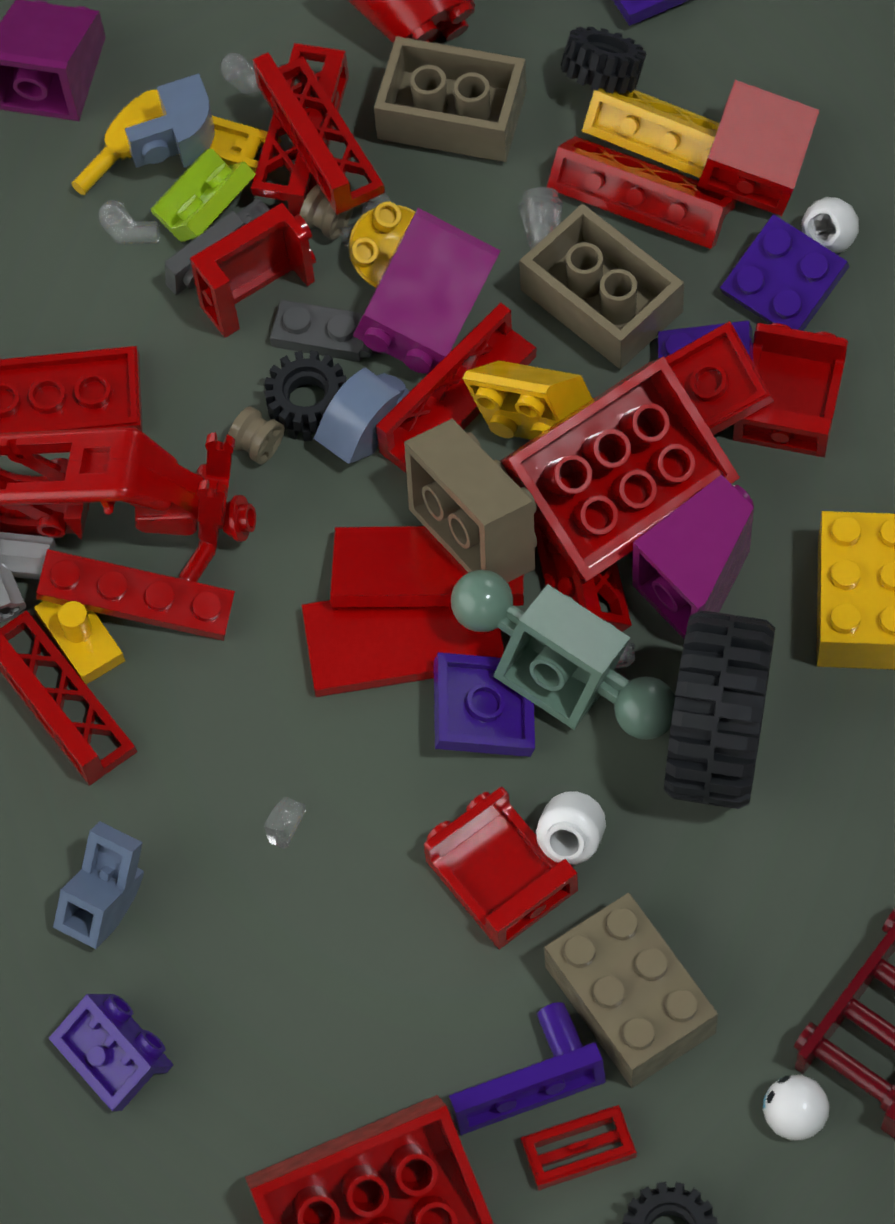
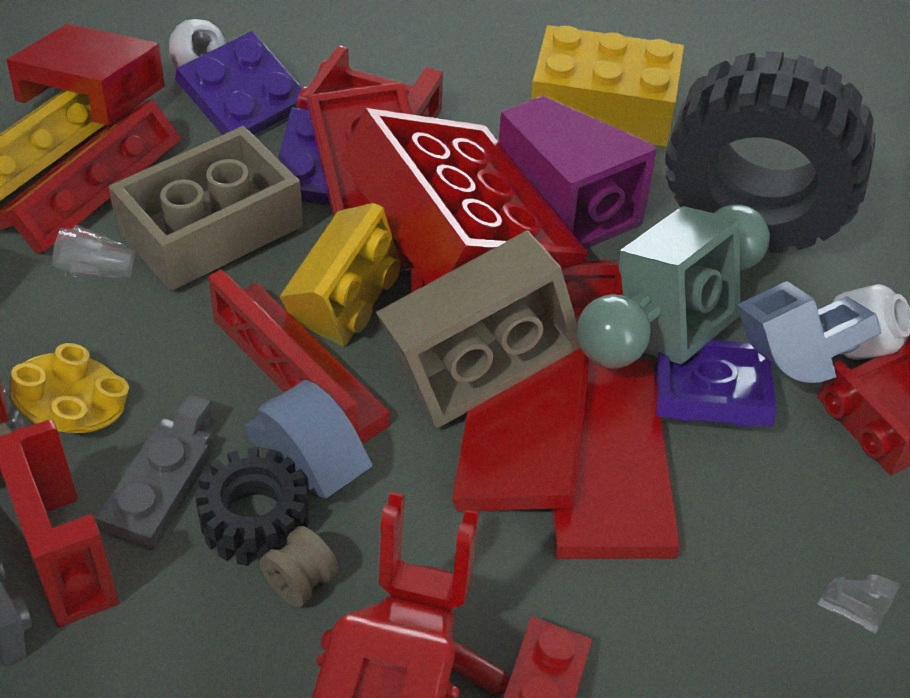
camera: 90 degrees left, 15 degrees down
(426, 292) = (165, 341): magenta slope -> none
(507, 749) = (801, 339): none -> sand blue brick

